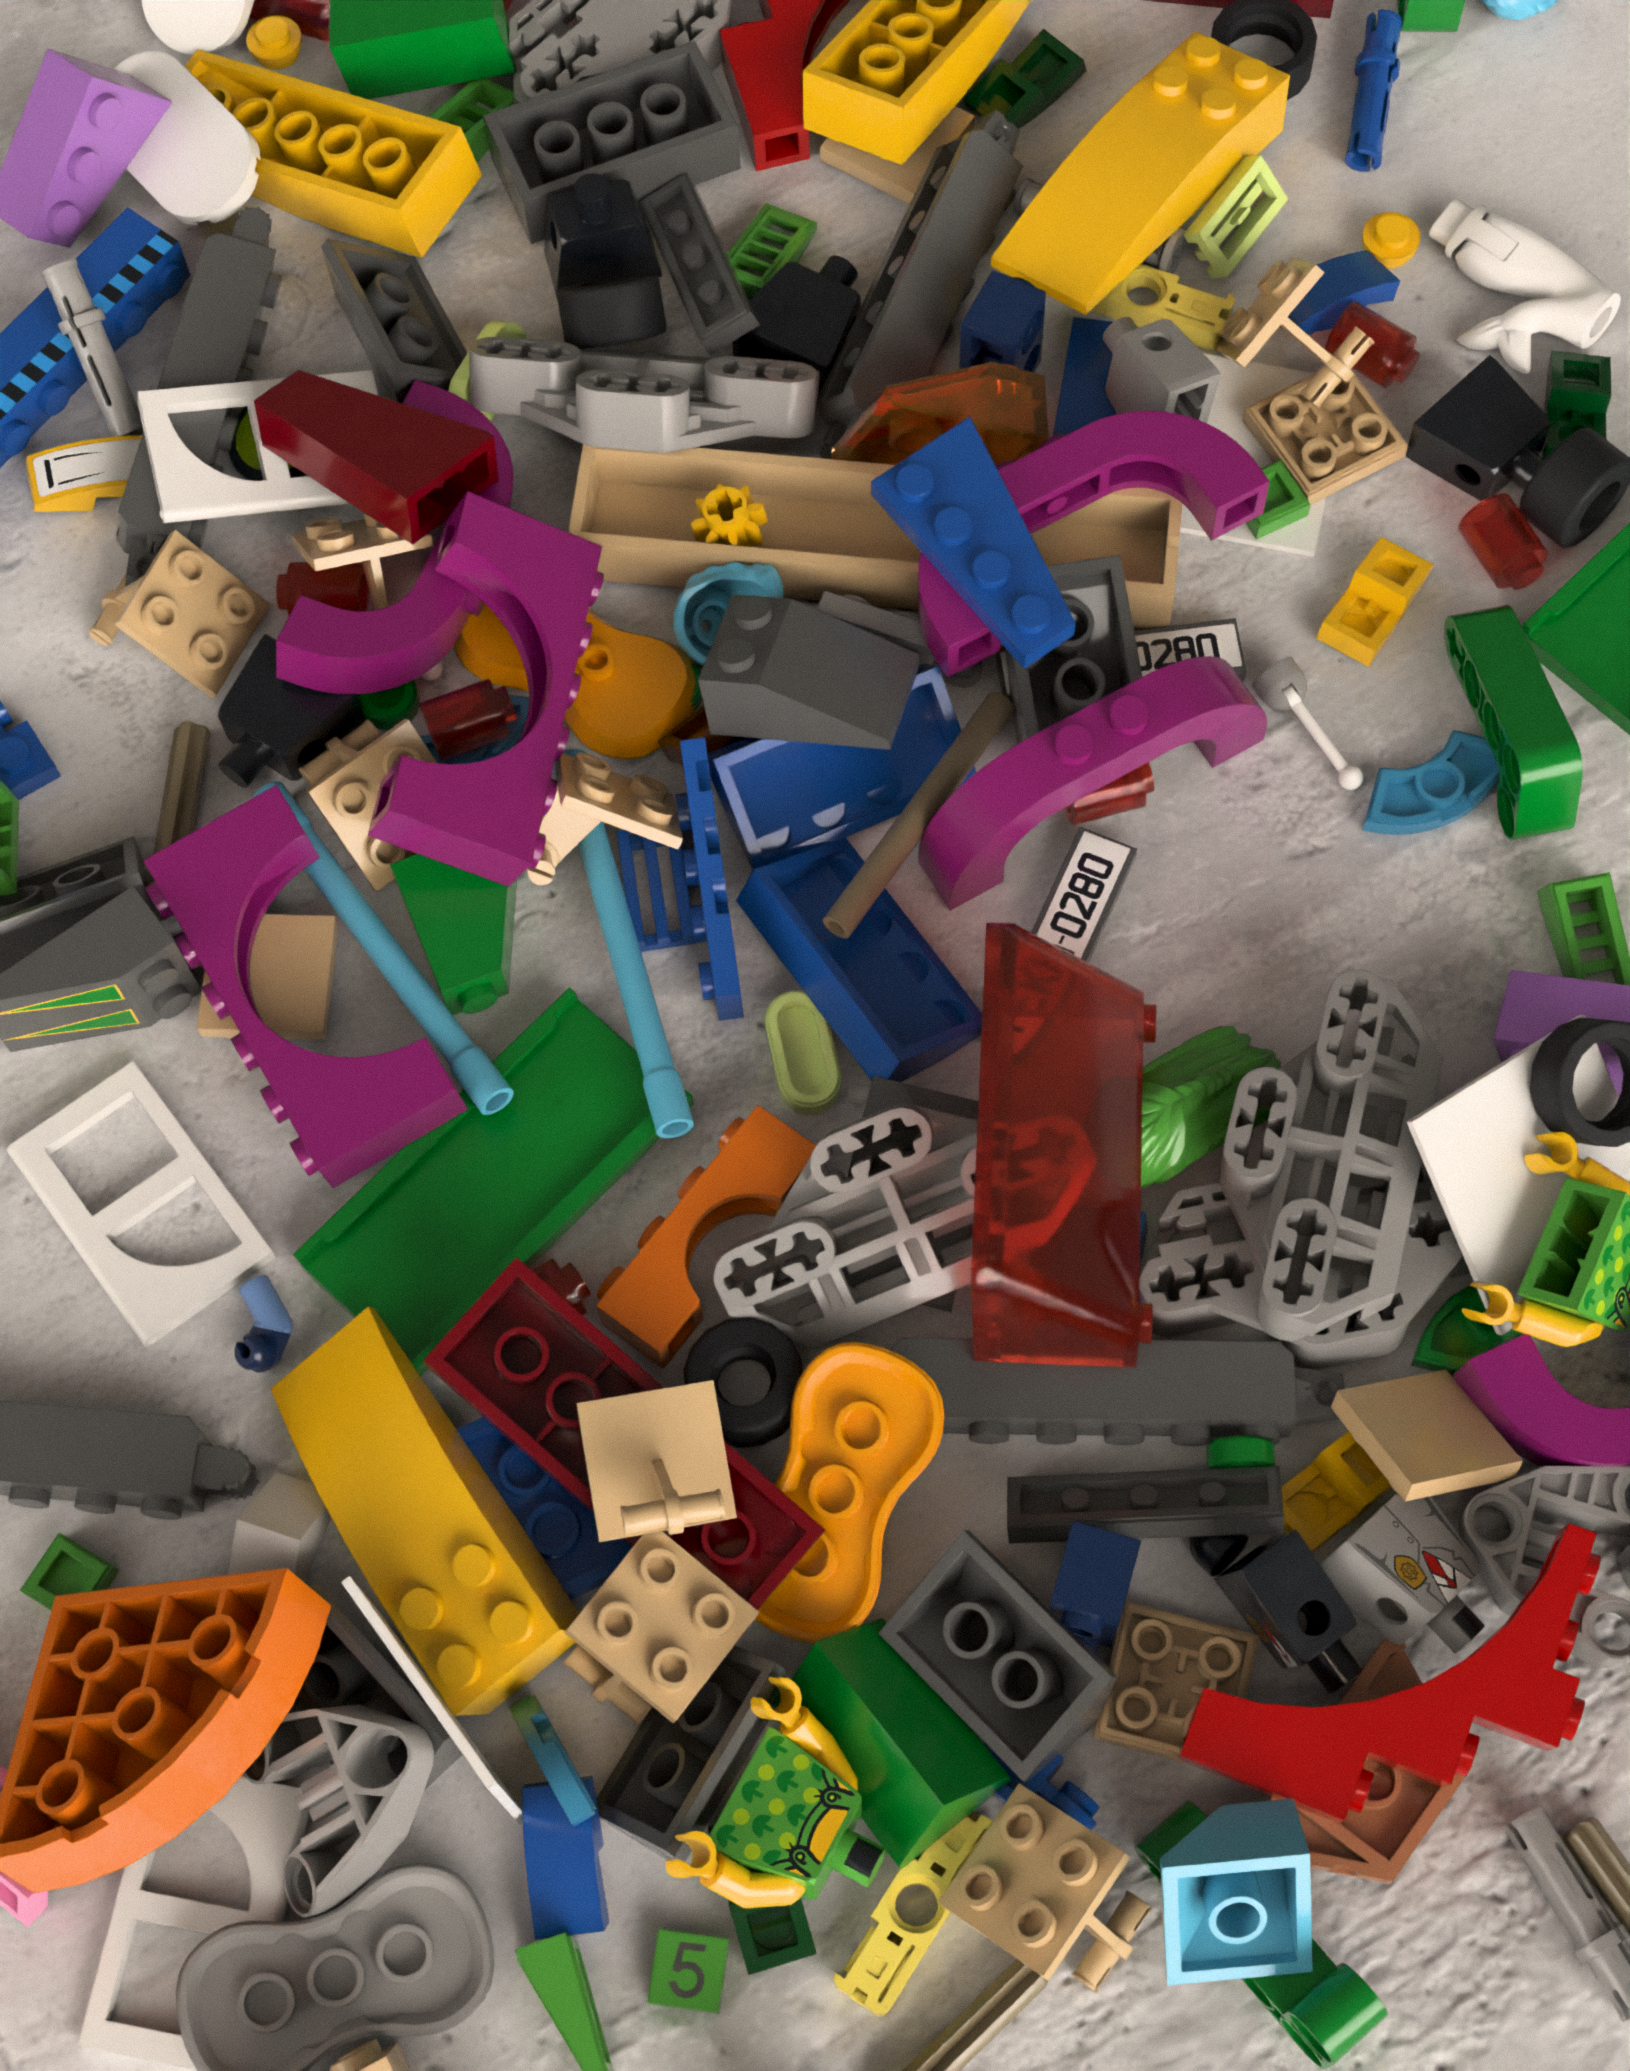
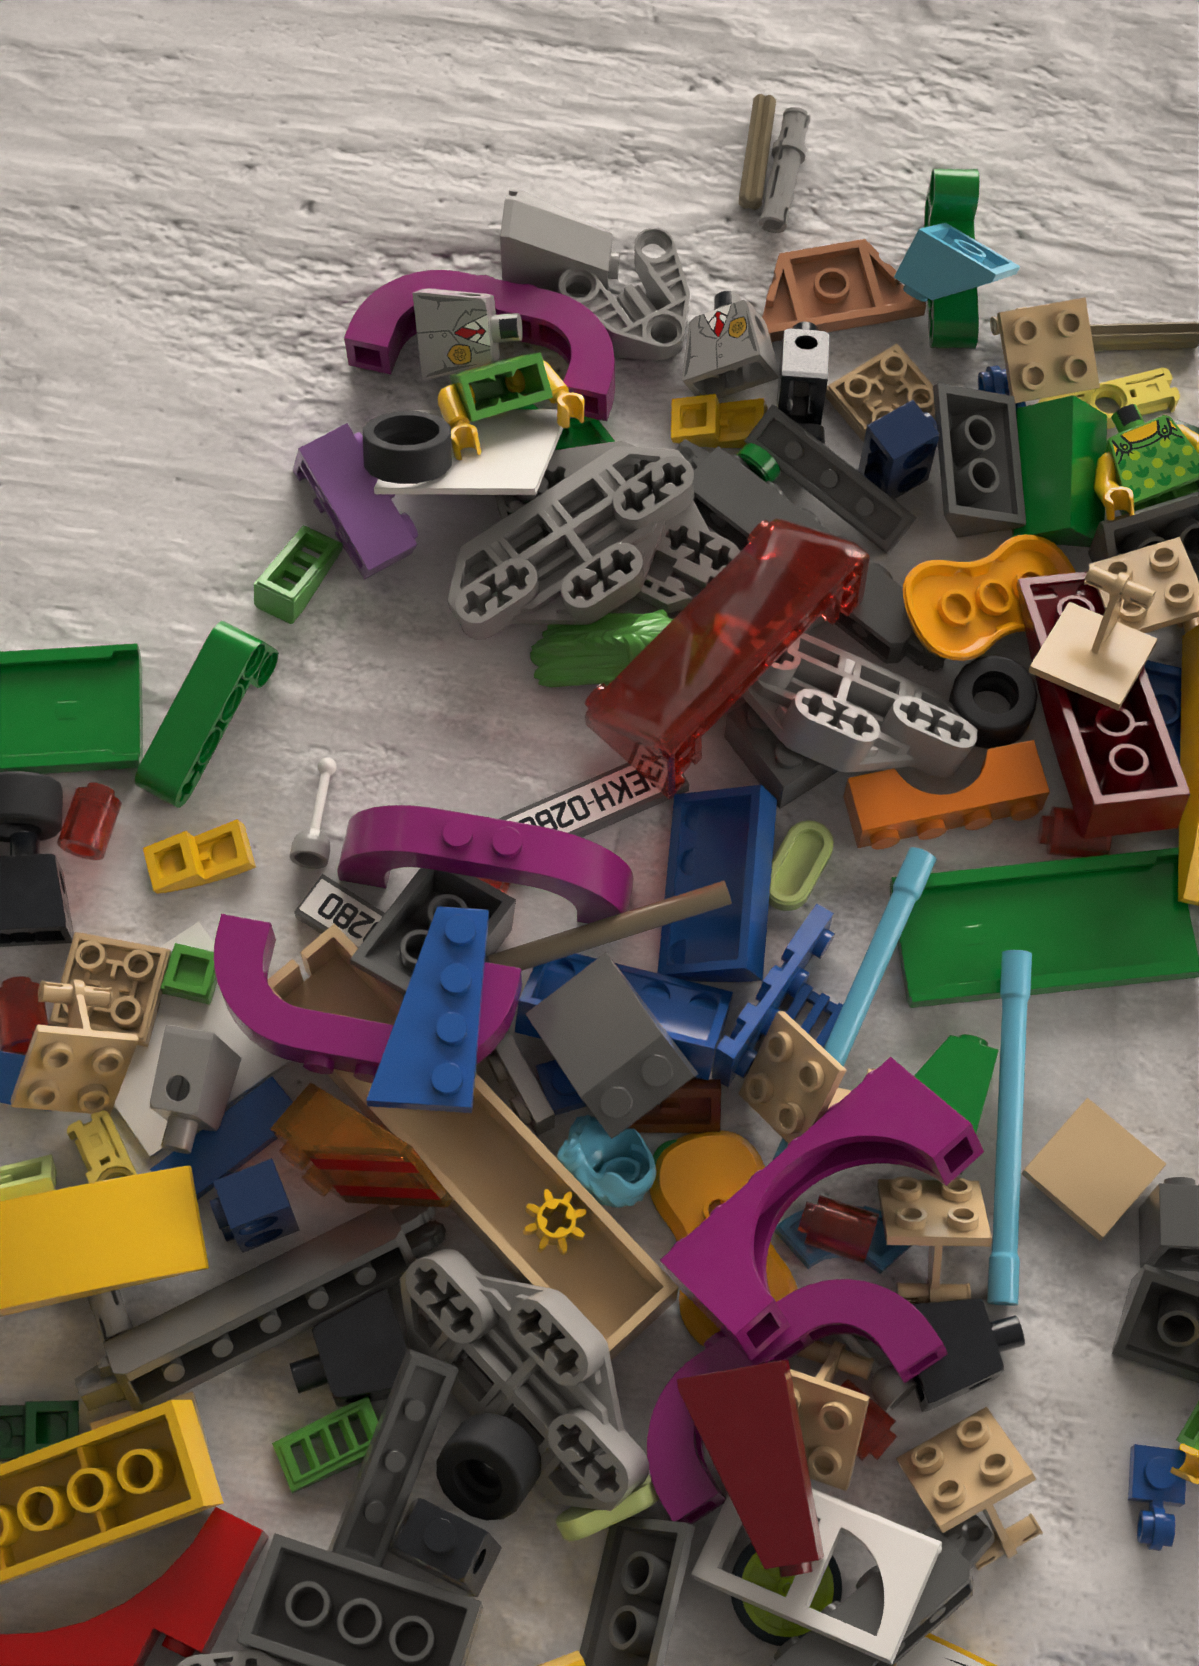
camera: 145 degrees left, 0 degrees up
(182, 784) = (1068, 1344): dark tan axle -> none
(341, 1107) = (1119, 1023): magenta arch -> none
(1422, 1730) = (796, 267): red arch -> none
(1425, 1435) = (658, 391): tan tile -> none
(1434, 791) = (288, 721): dark azure tile -> none

